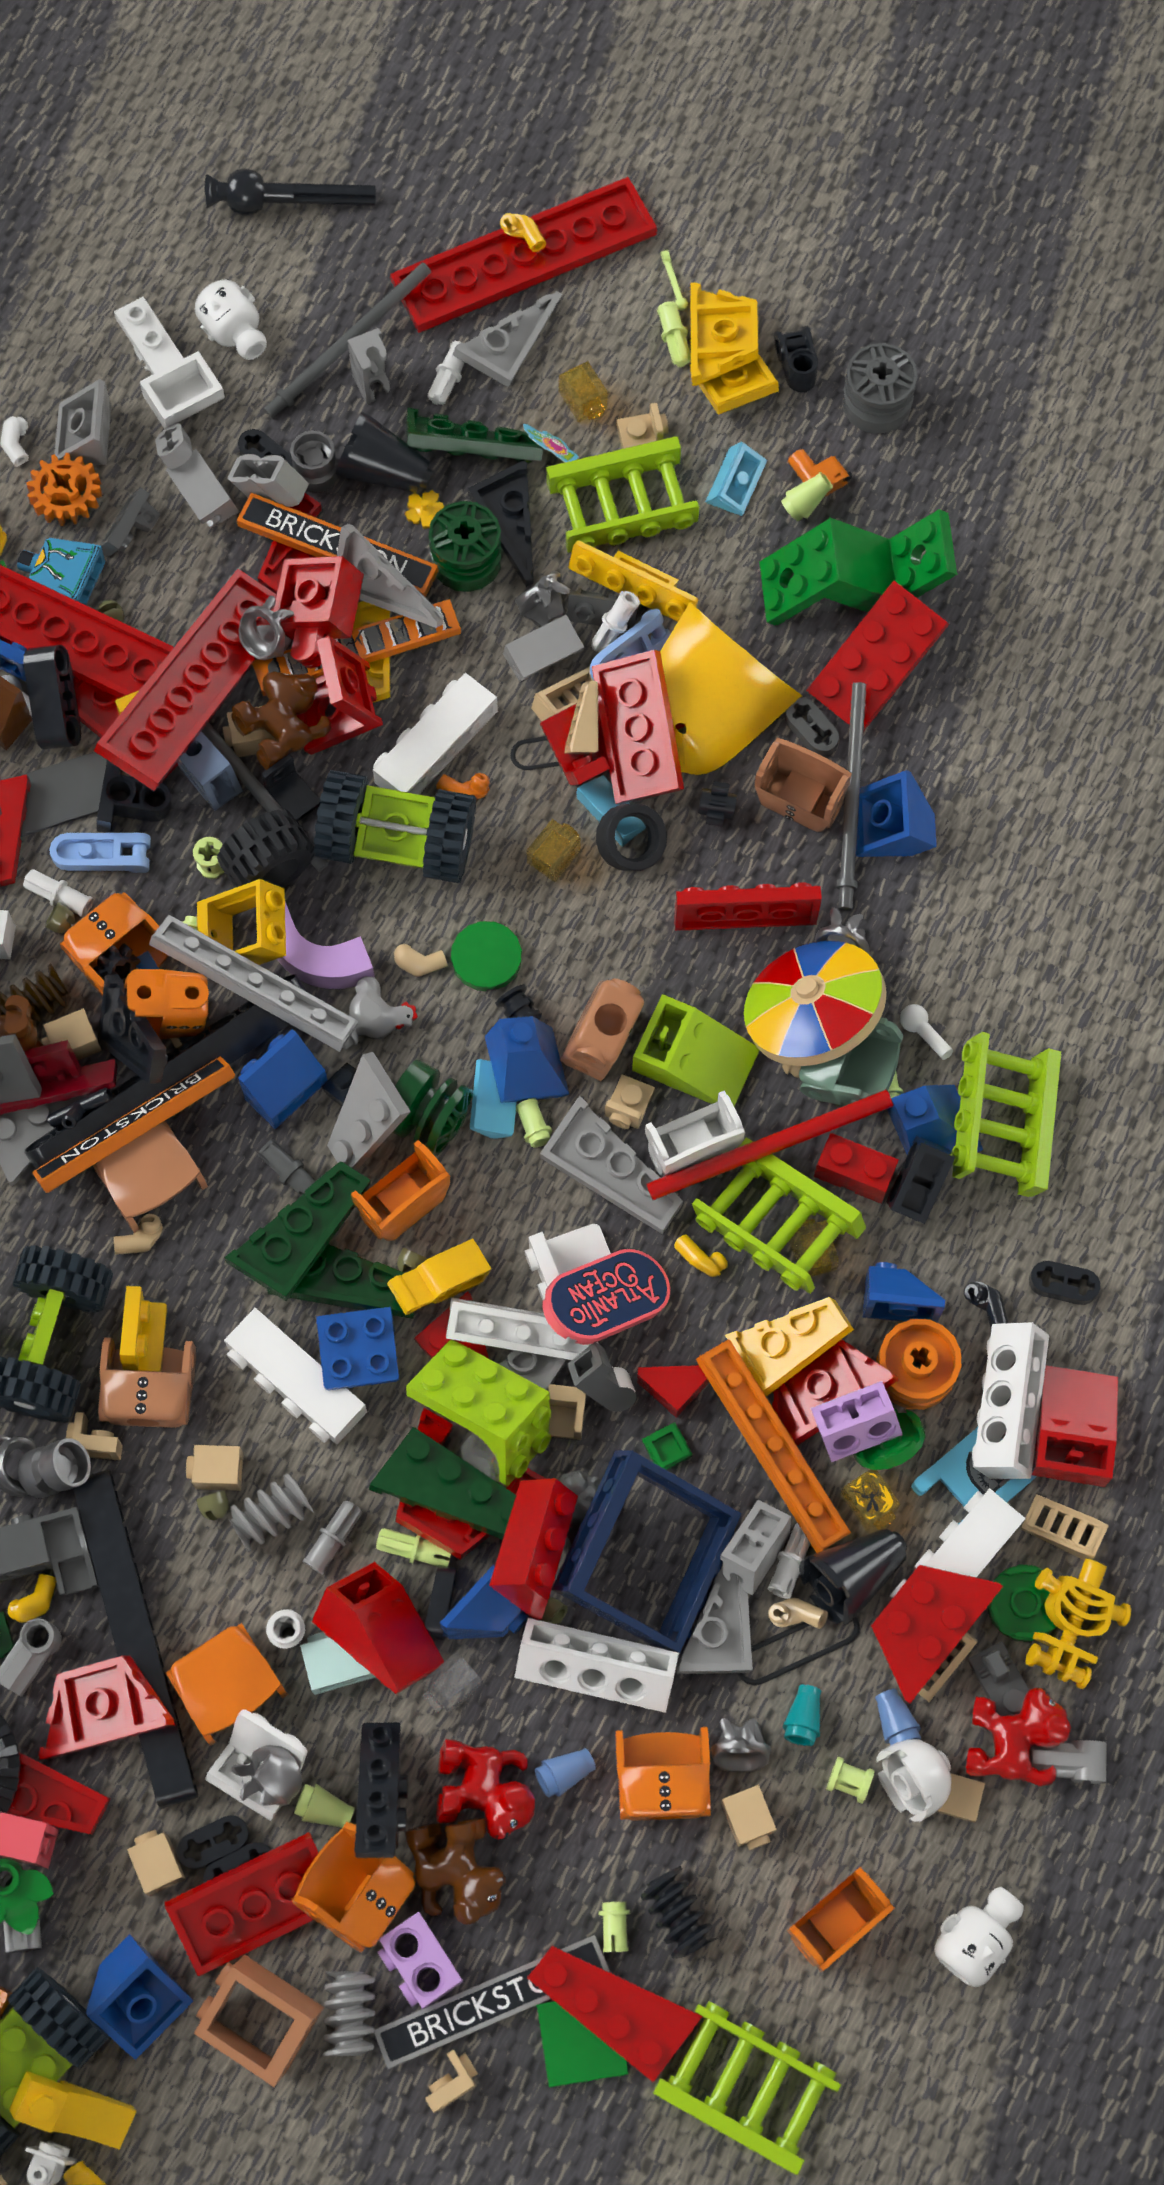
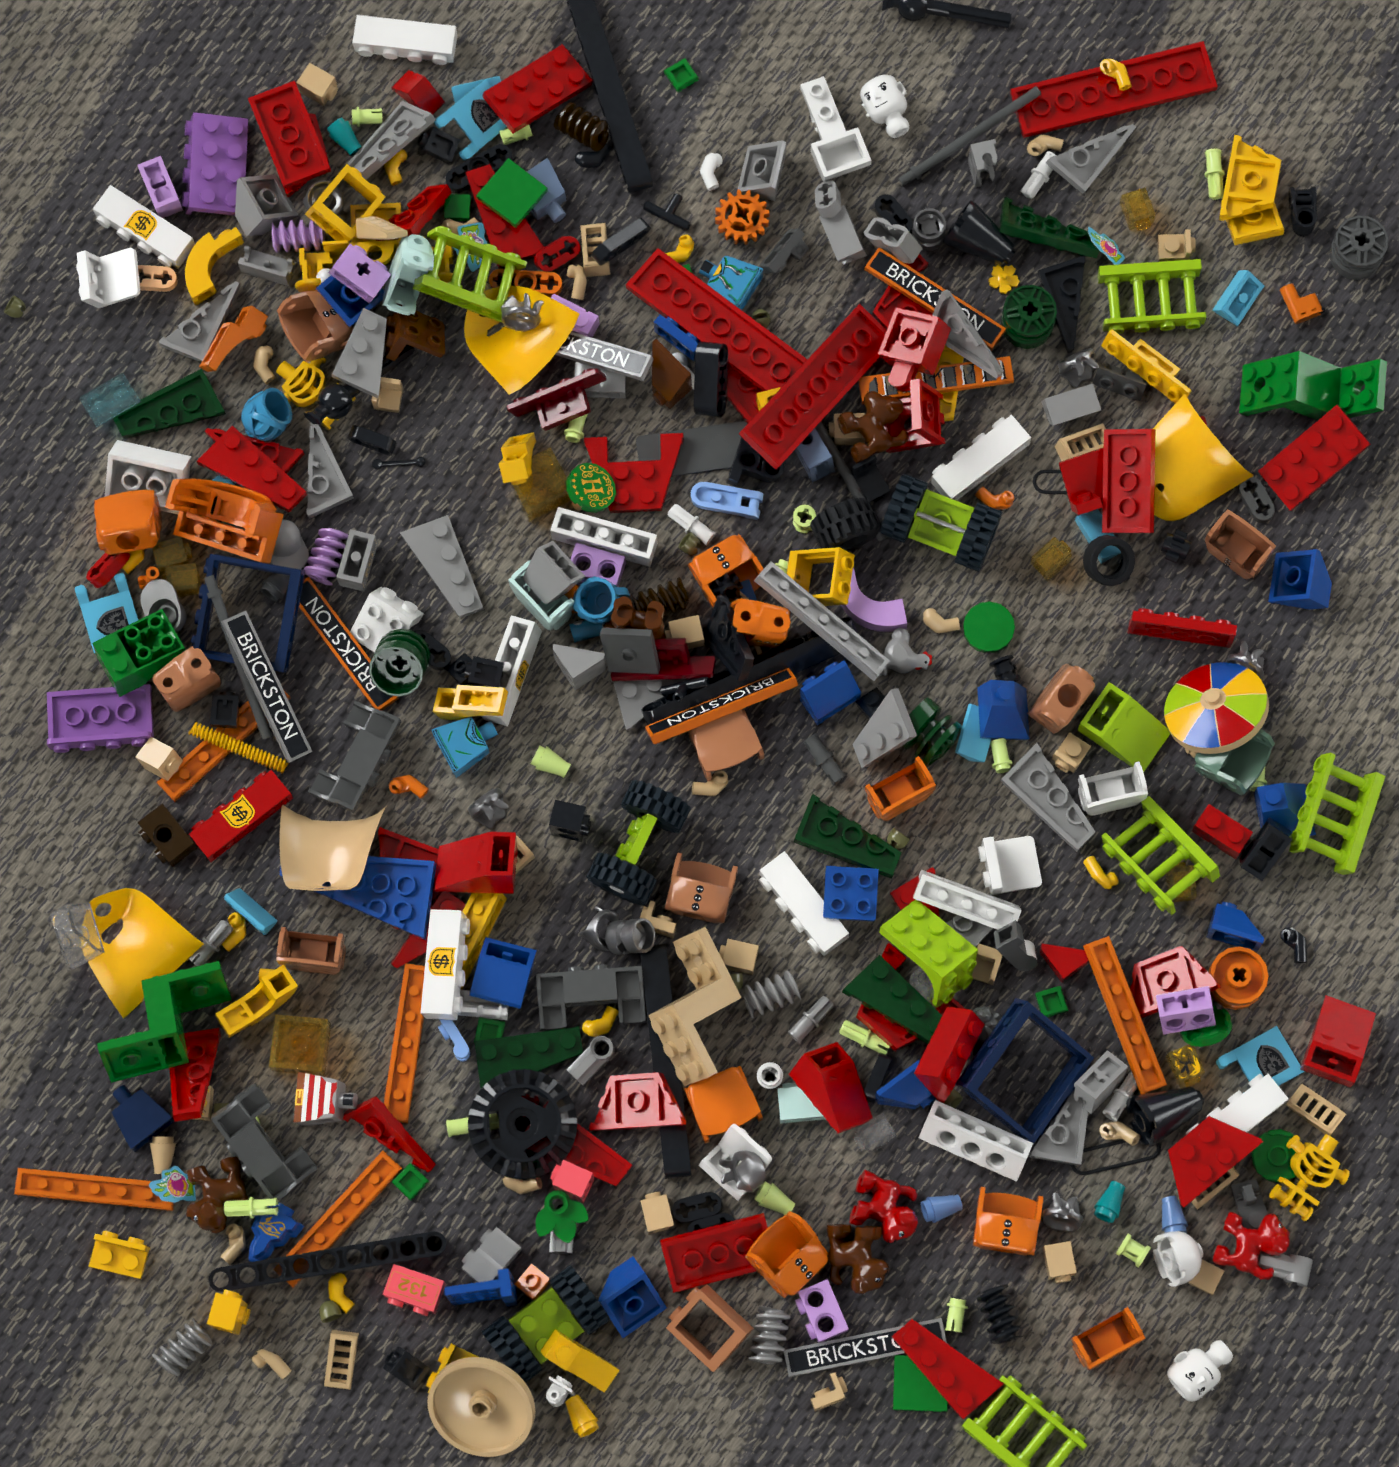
camera: 15 degrees right, 5 degrees up
(134, 1576) = (676, 1020): none -> tan bracket
(142, 1332) = (704, 854): yellow bracket -> none
(266, 640) = (872, 364): flat silver piece -> none
(295, 1239) = (821, 807): dark green wing -> none
(380, 1792) = (815, 1195): black bracket -> none
(440, 1277) = (916, 854): yellow piece -> none
(445, 334) = (1043, 143): none -> tan arm
(584, 725) = (1089, 475): tan slope -> none
(606, 1296) = (1029, 889): tile -> none
(615, 620) = (1127, 395): white axle -> none
(636, 639) = (1139, 414): light blue plate -> none
(681, 302) = (1224, 148): yellowish green hinge -> none
(769, 1144) = (1164, 804): red piece -> none
(788, 1344) = (1151, 946): yellow wing -> none
(805, 497) = (1285, 323): yellowish green cone -> none
(846, 883) = (1258, 620): dark grey bar -> none
(915, 1019) = (1287, 731): white bar -> none
(1019, 1418) = (1299, 1028): white brick -> none
(1062, 1291) = (1355, 934): black beam -> none

